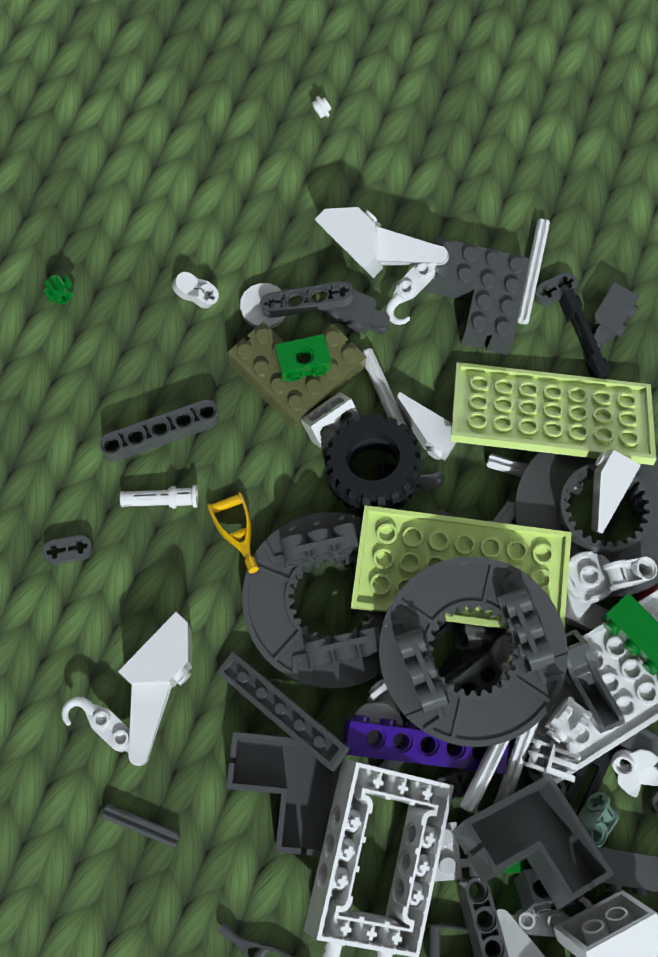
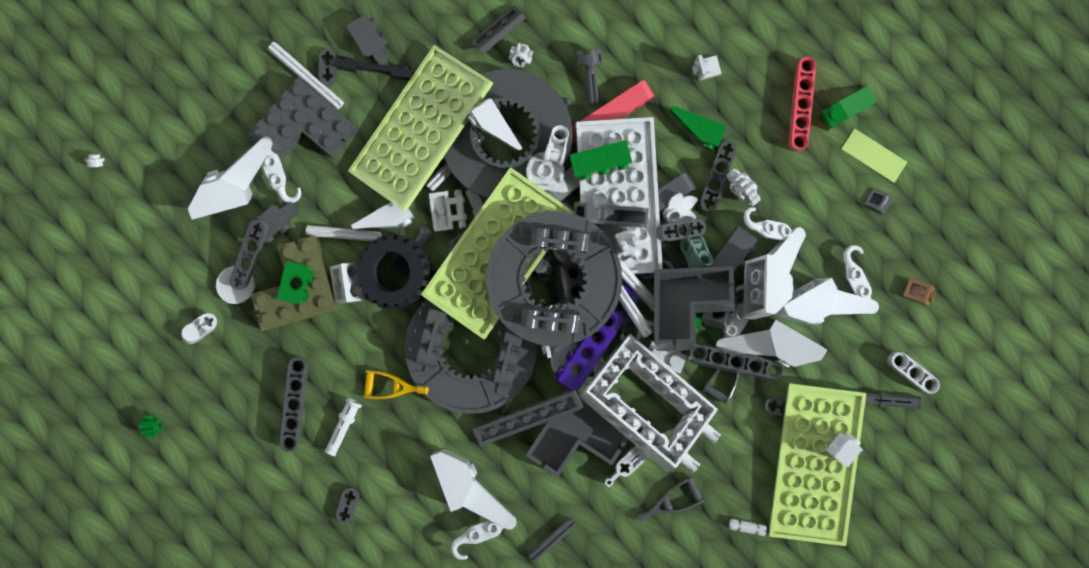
camera: 50 degrees left, 15 degrees up
(287, 881) = (640, 458): none -> white piece
(471, 485) = (441, 210): none -> white plate
(550, 760) = (637, 272): white arm -> none
(604, 779) = (688, 233): none -> dark grey beam

